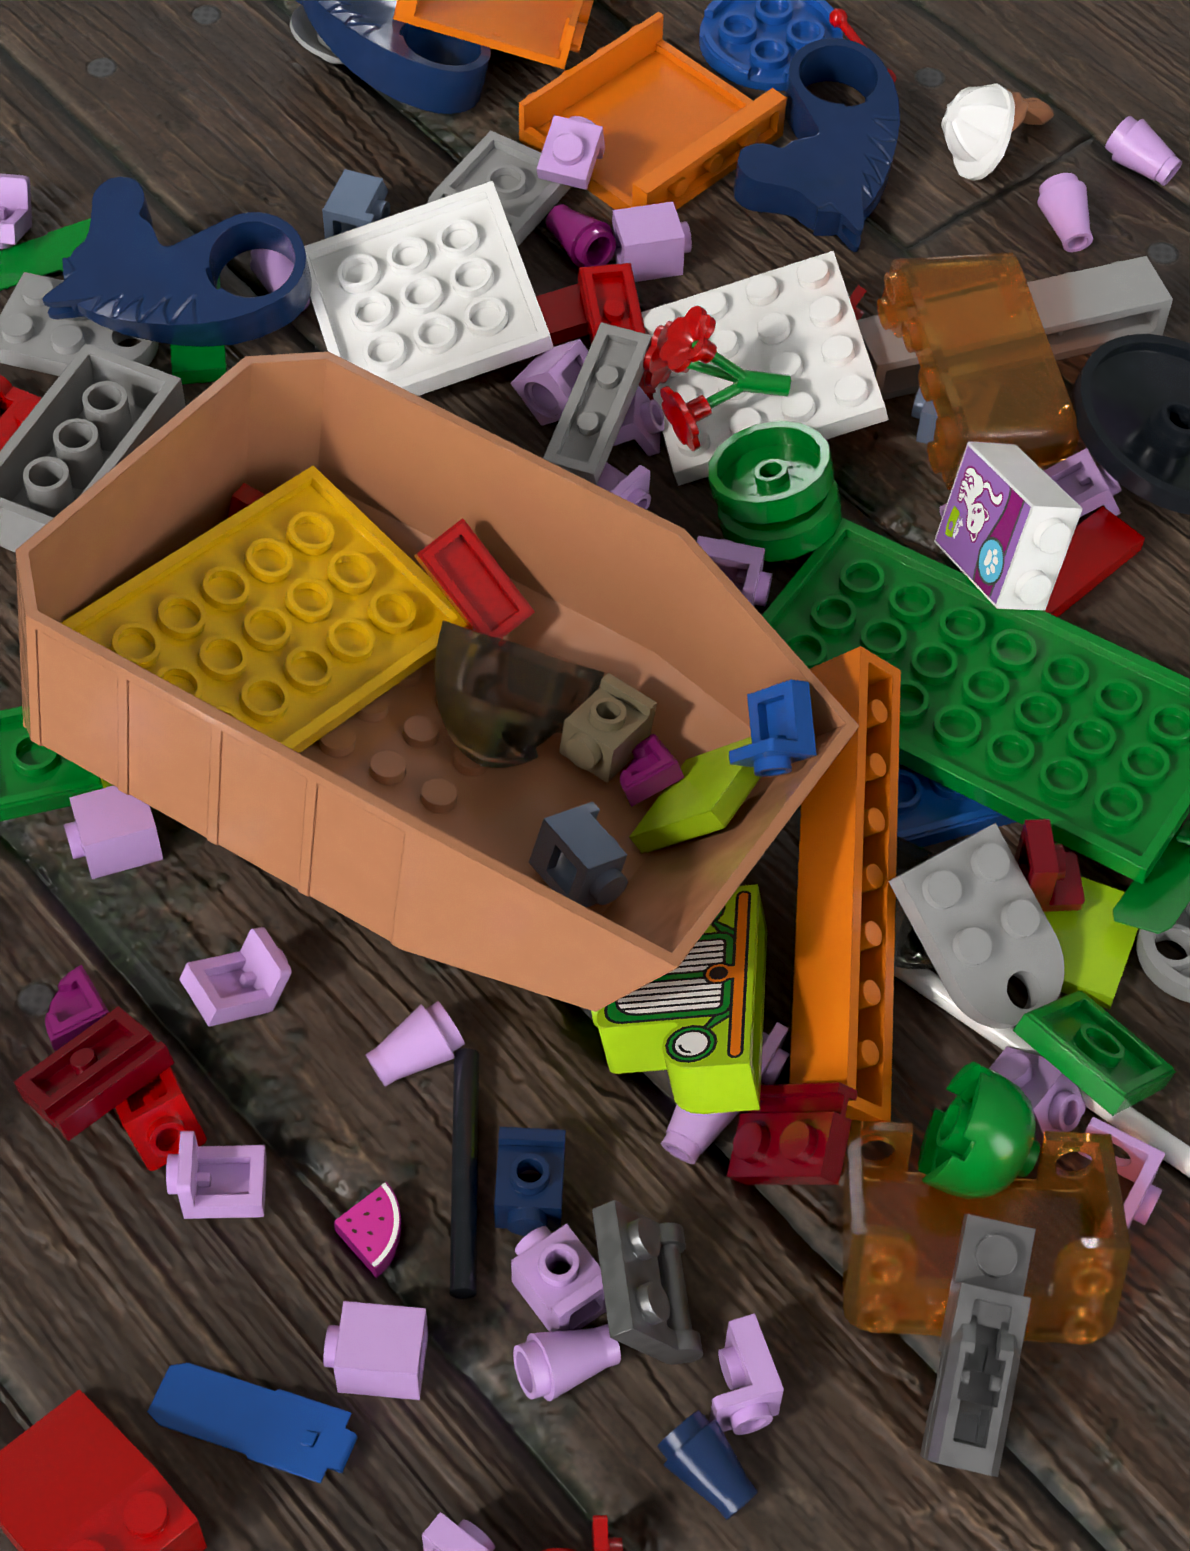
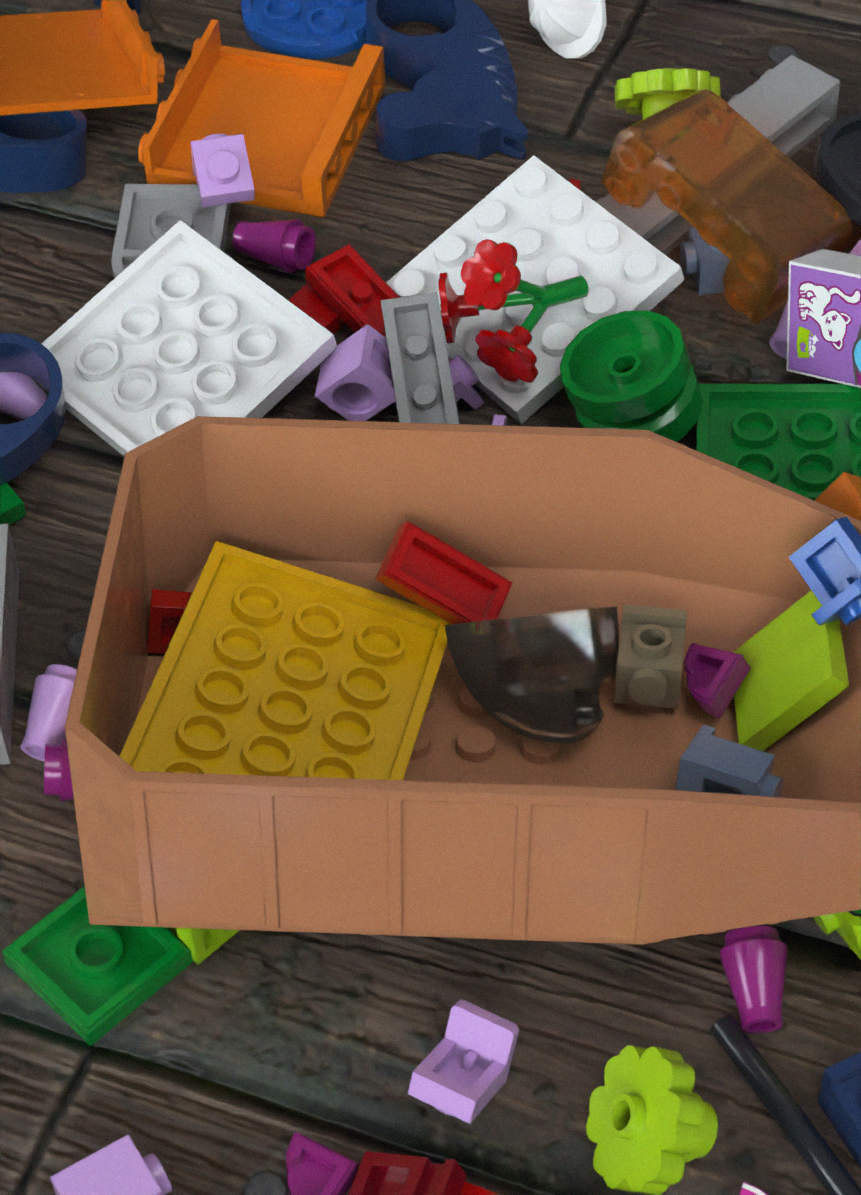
camera: 25 degrees left, 5 degrees down
(112, 832) = (236, 984): lavender brick -> none
(341, 1097) = (648, 1120): none -> lime plant
(355, 203) = (47, 300): sand blue brick -> none
(416, 1044) = (682, 1022): lavender cone -> none
(516, 1030) = (756, 974): none -> magenta cone
(651, 240) = (346, 216): lavender brick -> none
(993, 235) = (658, 88): none -> lime plant
(1065, 206) = (683, 46): lavender cone -> none

